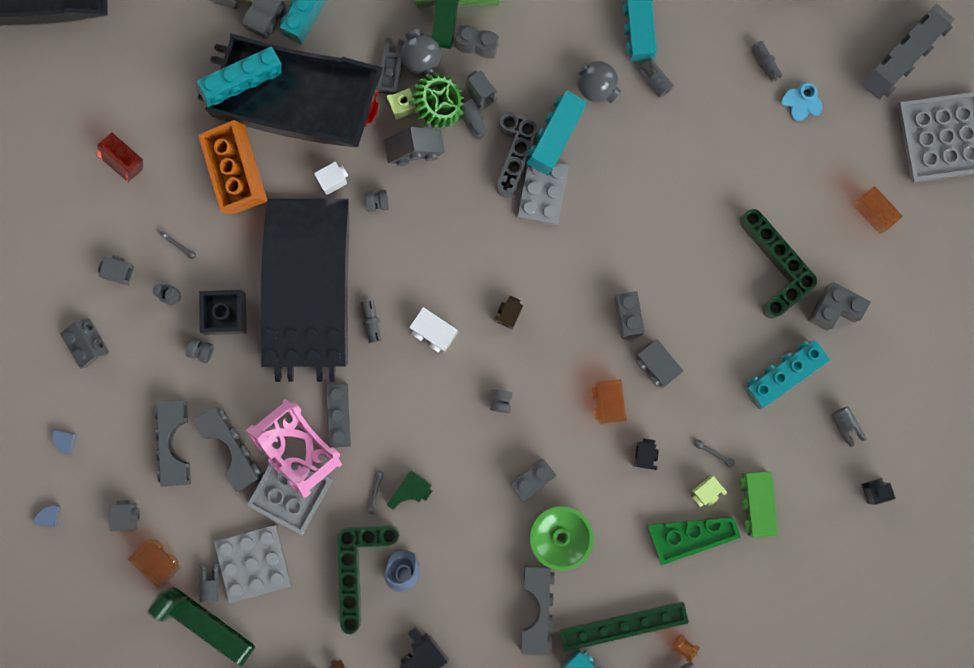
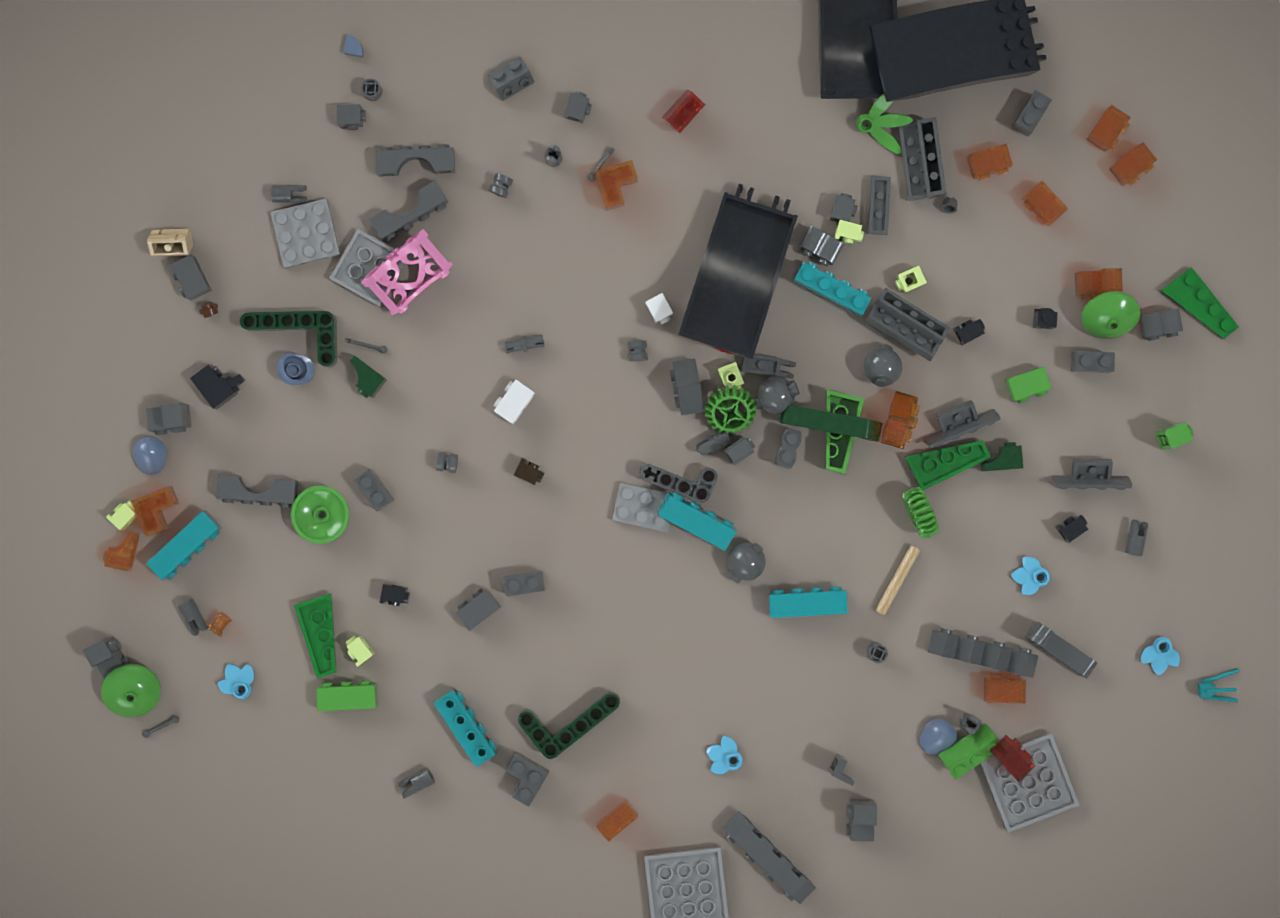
camera: 90 degrees right, 5 degrees up
(63, 441) = (421, 60): sand blue tile -> none
(98, 495) = (373, 93): none -> dark grey wheel
(155, 562) = (308, 145): clear orange brick -> none
(196, 231) = (610, 181): none -> clear orange brick
(203, 623) = (252, 189): dark green beam -> none
(222, 312) = (534, 207): black brick -> none
(232, 167) = (670, 216): orange brick -> none
(239, 77) = (754, 224): teal brick -> none
(305, 285) = (559, 283): black hinge -> none
(338, 415) = (438, 312): dark grey plate -> none
(609, 401) = (444, 563): clear orange brick -> none
(624, 626) = (240, 569): dark green plate -> none
(659, 81) = (746, 620): dark grey hinge -> none
(729, 462) = (386, 672): dark grey hinge -> none
(744, 629) = (235, 678): none -> medium azure plate
(767, 61) = (764, 723): dark grey pin -> none
(878, 491) = (355, 805): black brick -> none

